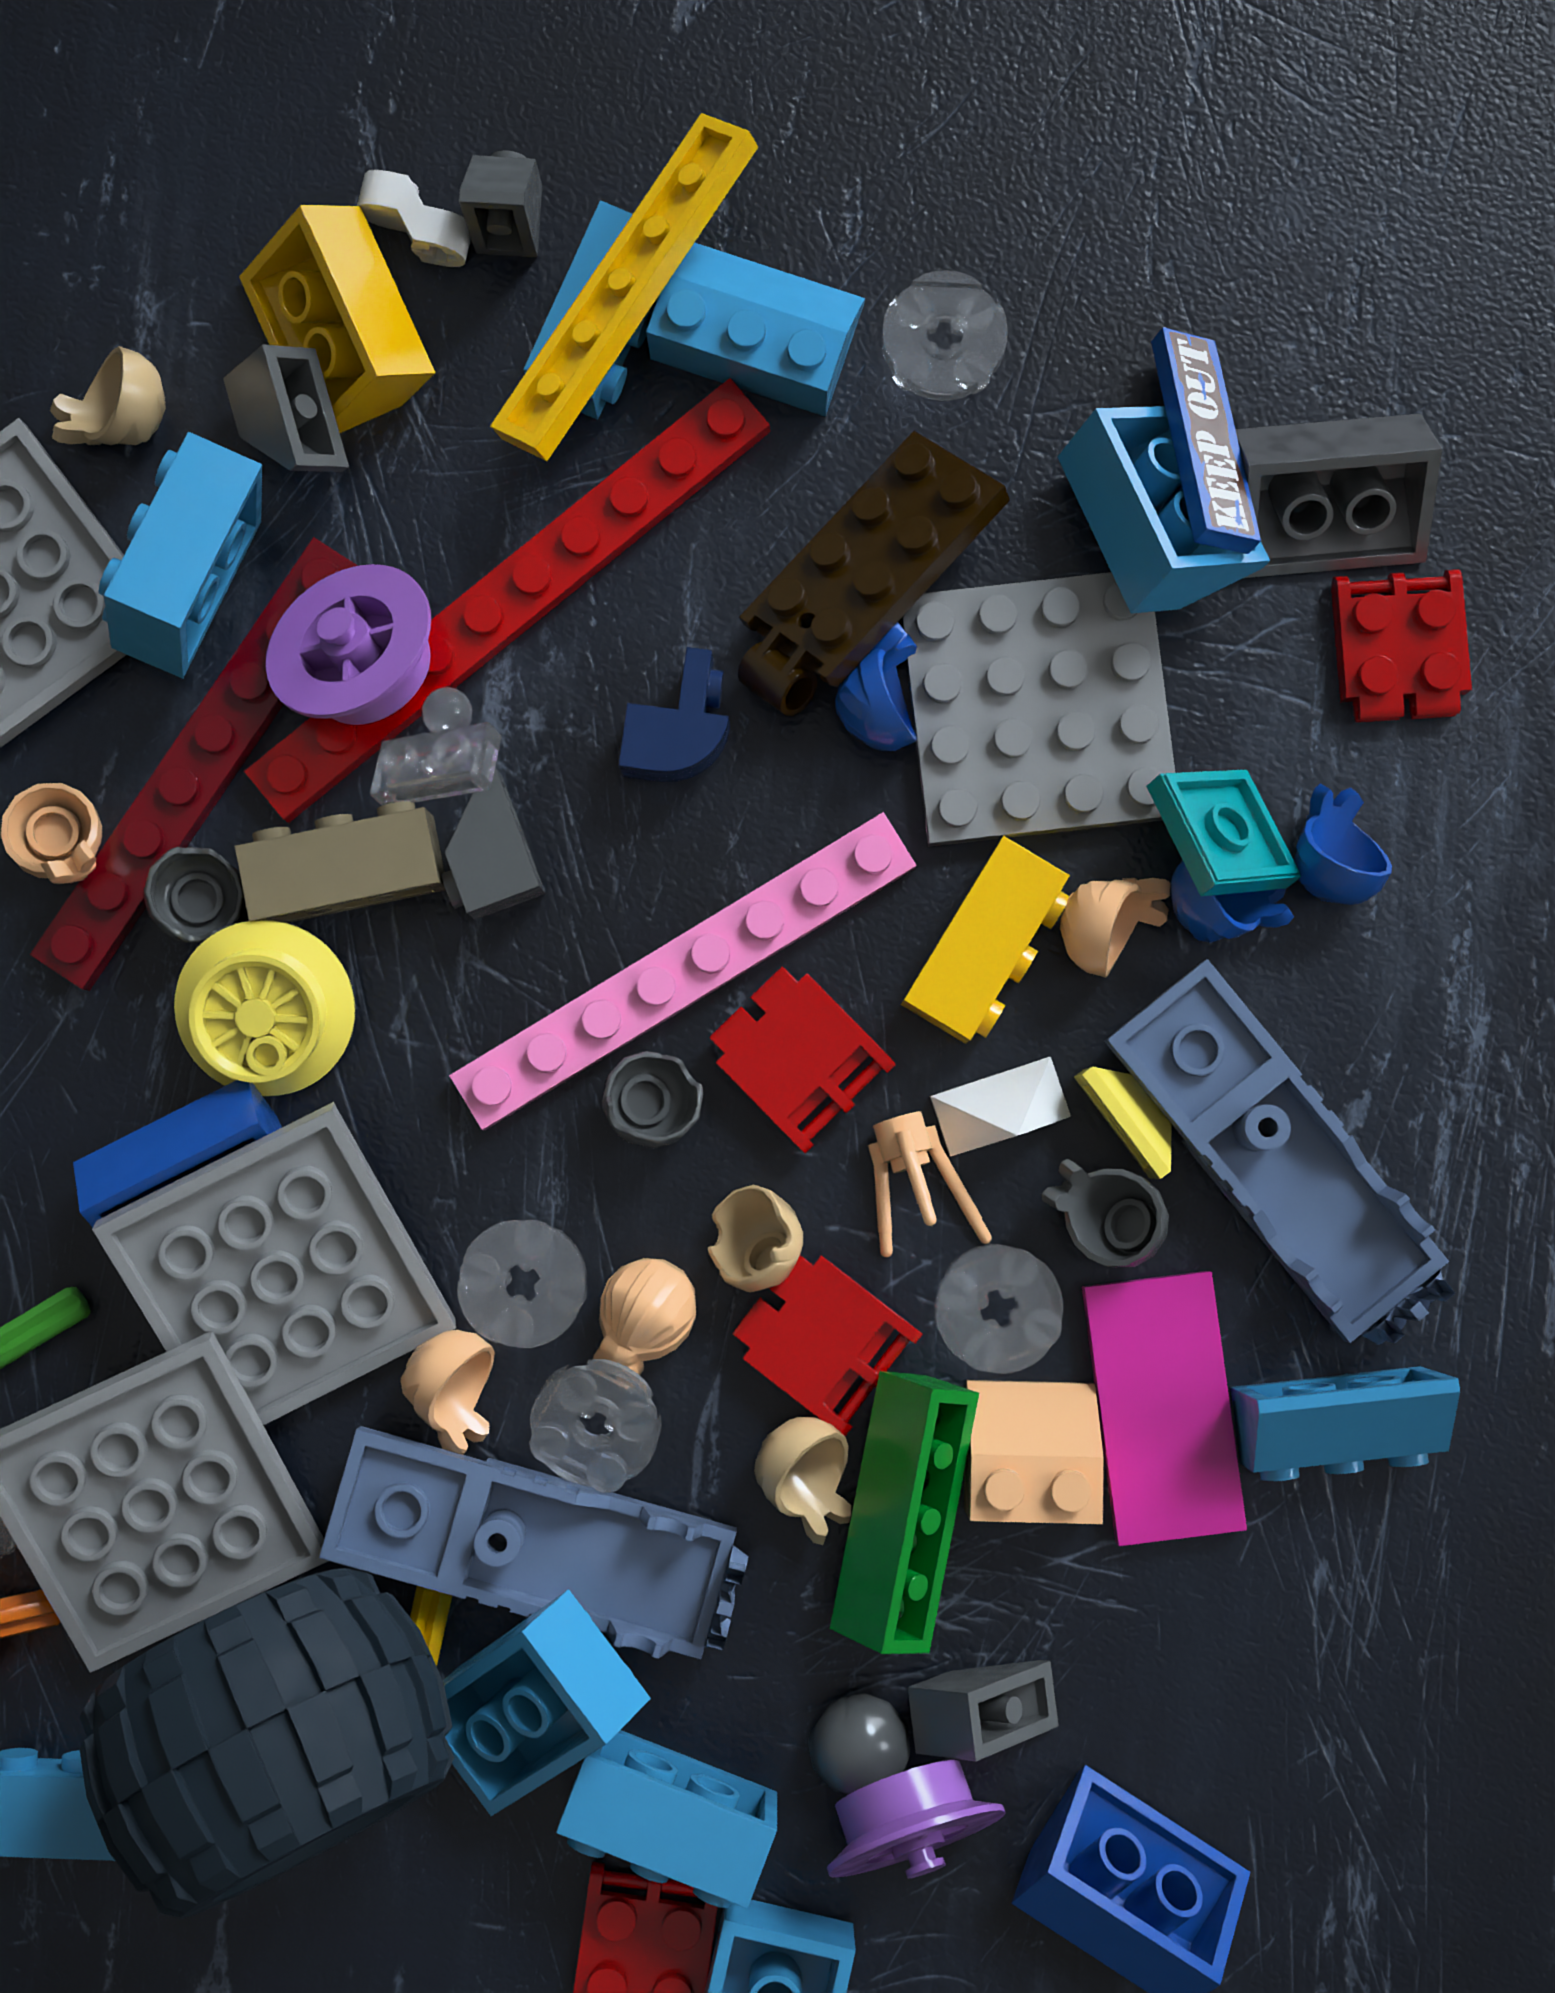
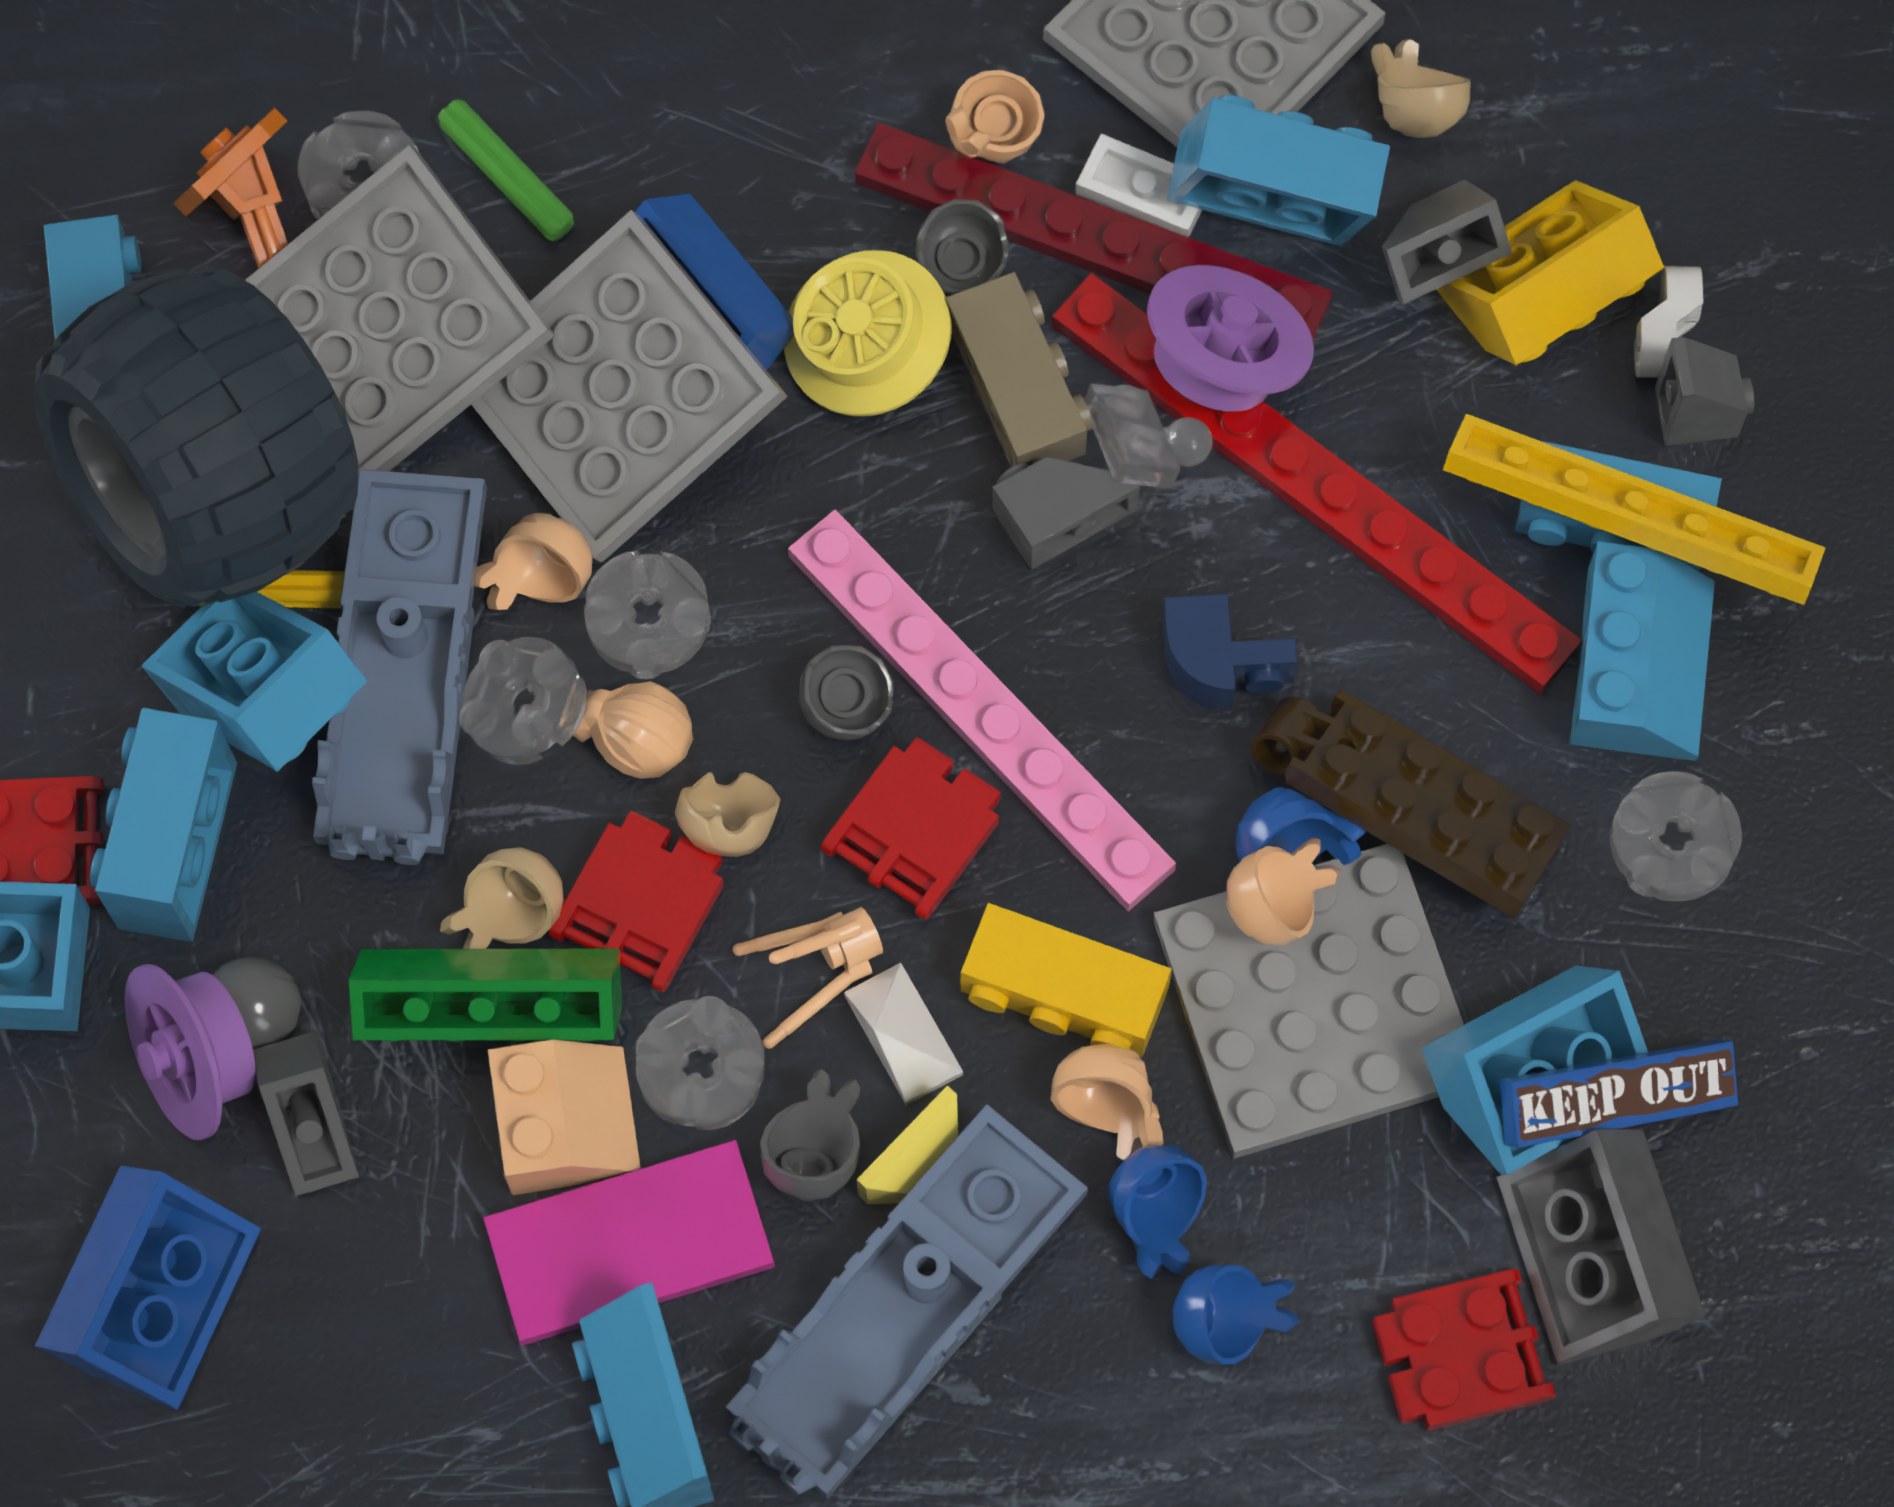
camera: 80 degrees right, 15 degrees down
(156, 709) = (1134, 185): none -> white plate
(948, 721) = (1274, 892): none -> light nougat piece
(1223, 832) = (1220, 1182): teal tile -> none

